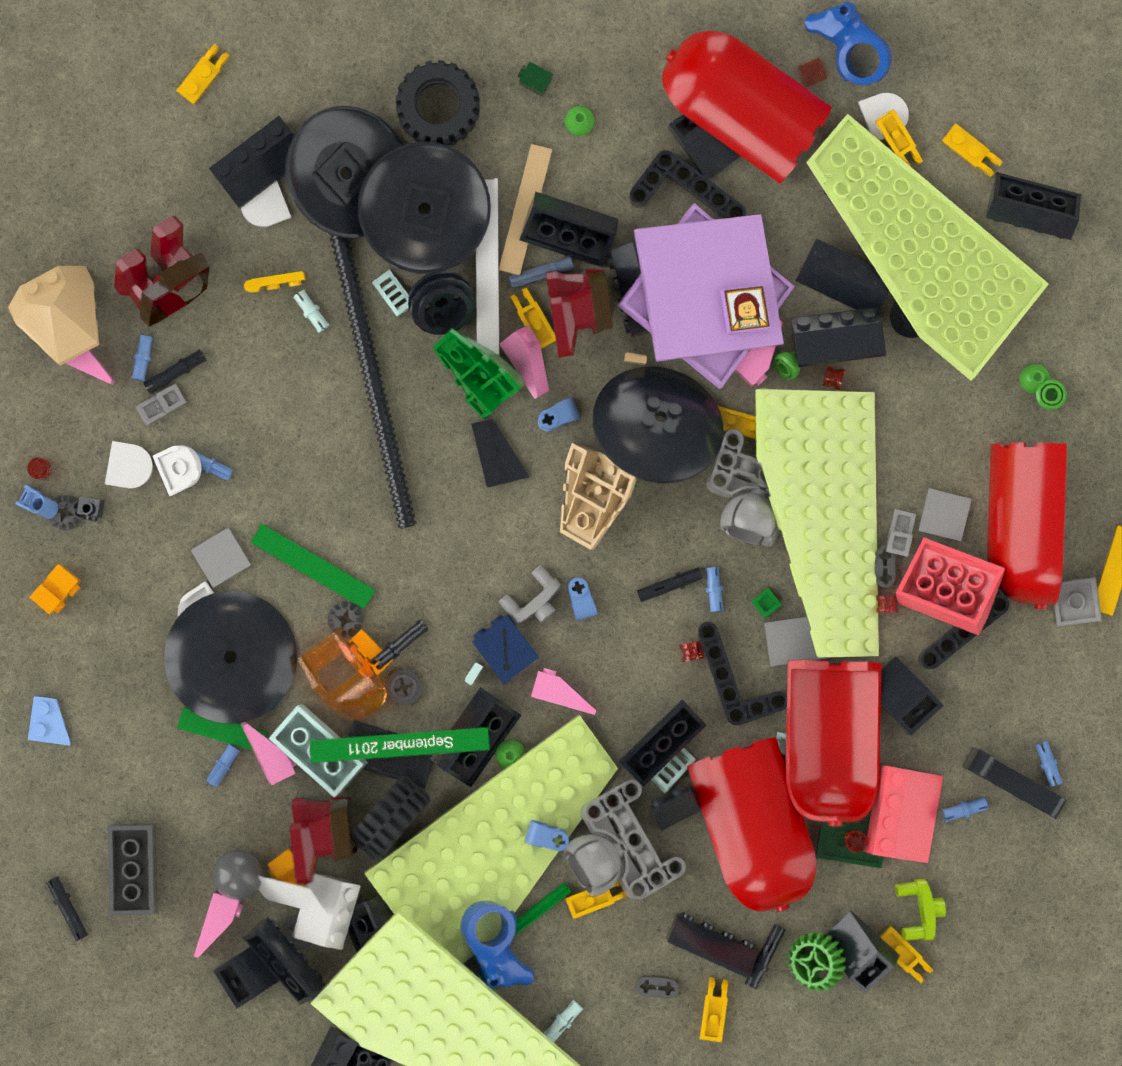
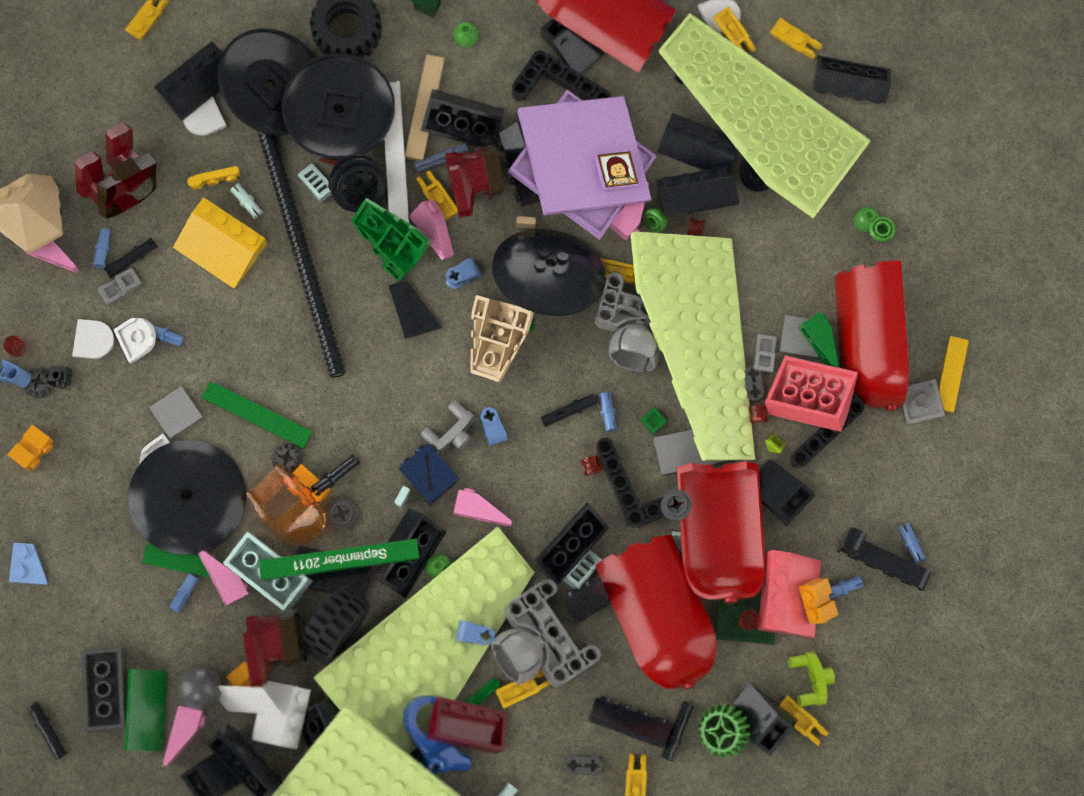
camera: 10 degrees left, 10 degrees down
(176, 895) = (145, 710): none -> green tile
(278, 361) = (219, 243): none -> yellow slope
(532, 937) = (467, 725): none -> dark red slope
(775, 700) = (668, 501): none -> dark grey gear
(900, 643) = (773, 447): none -> lime slope
(934, 824) = (817, 601): none -> light orange brick
(967, 521) = (820, 337): none -> green slope

